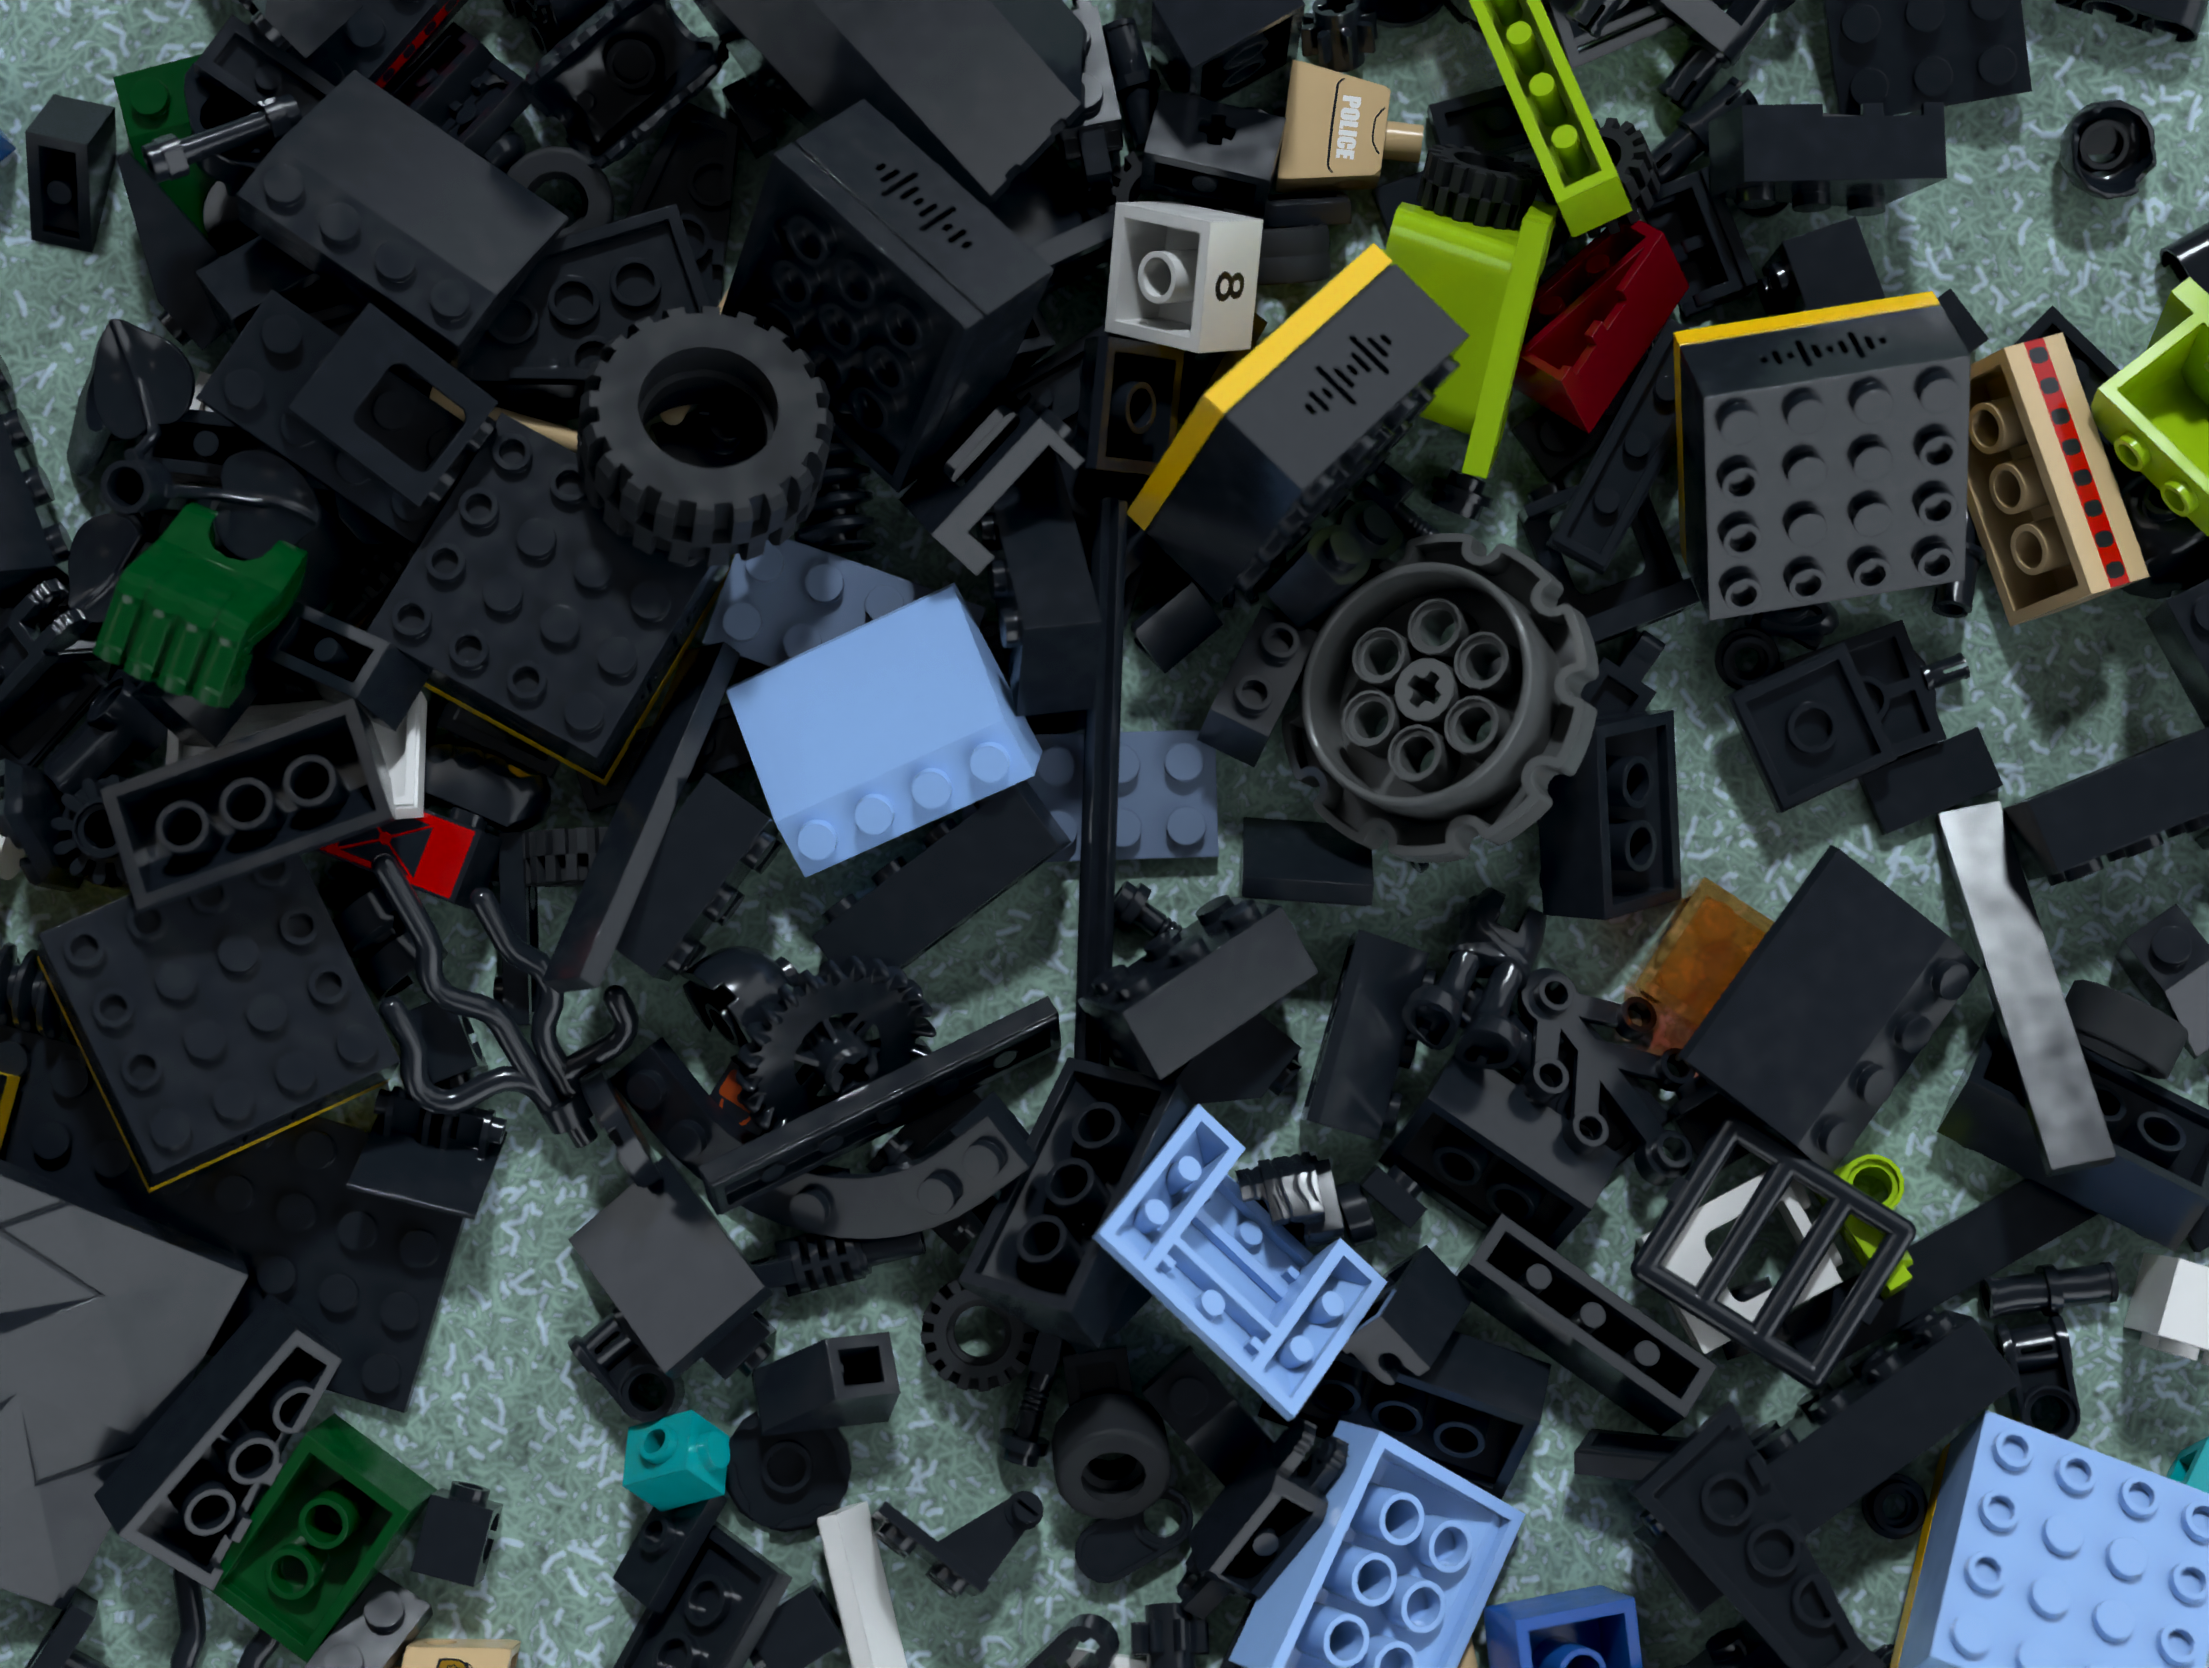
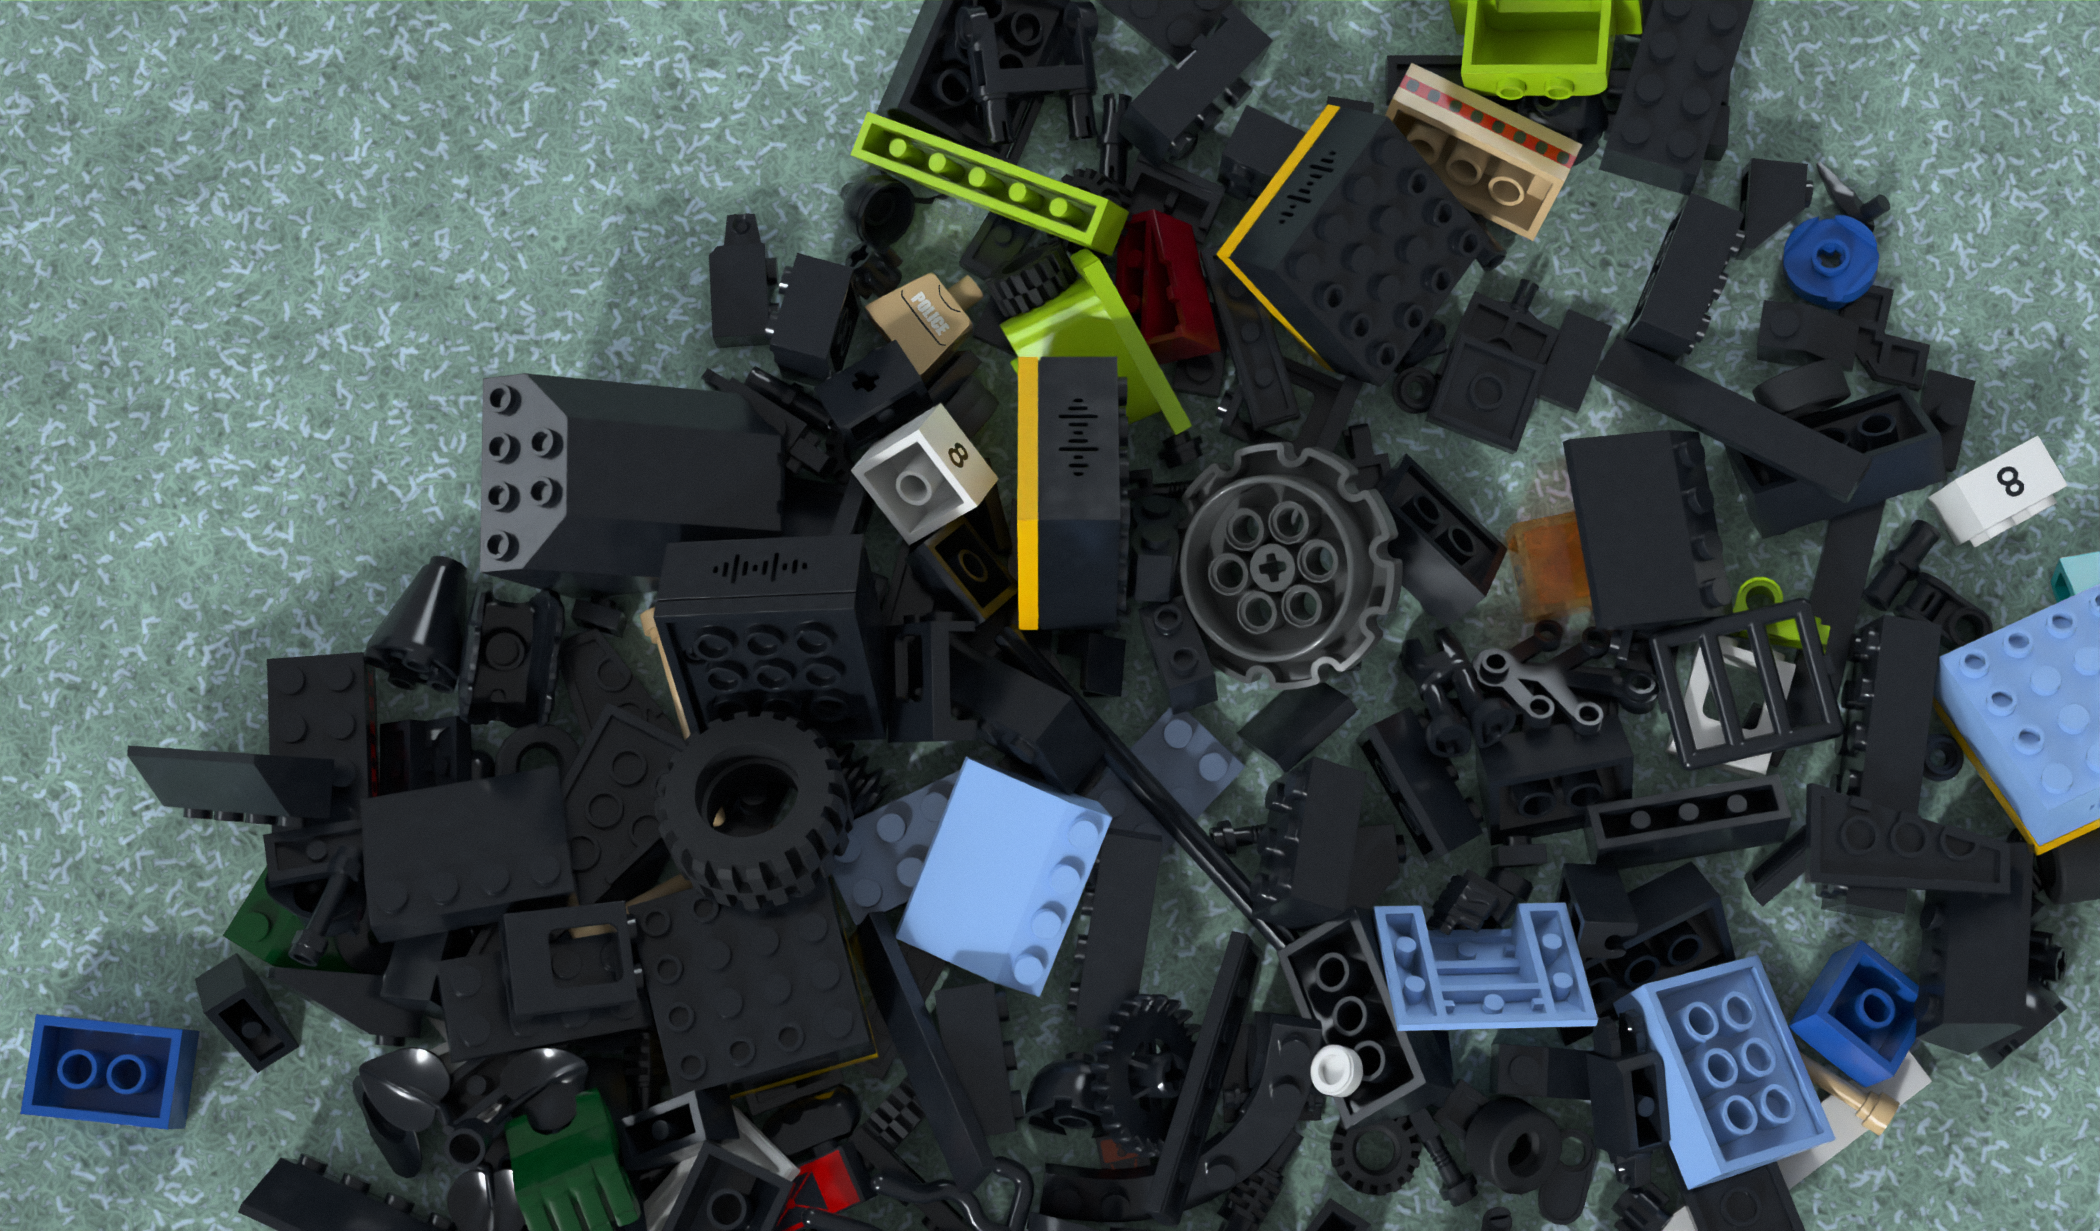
camera: 50 degrees left, 5 degrees down
(1004, 1219) = (1336, 1071): none -> white tile

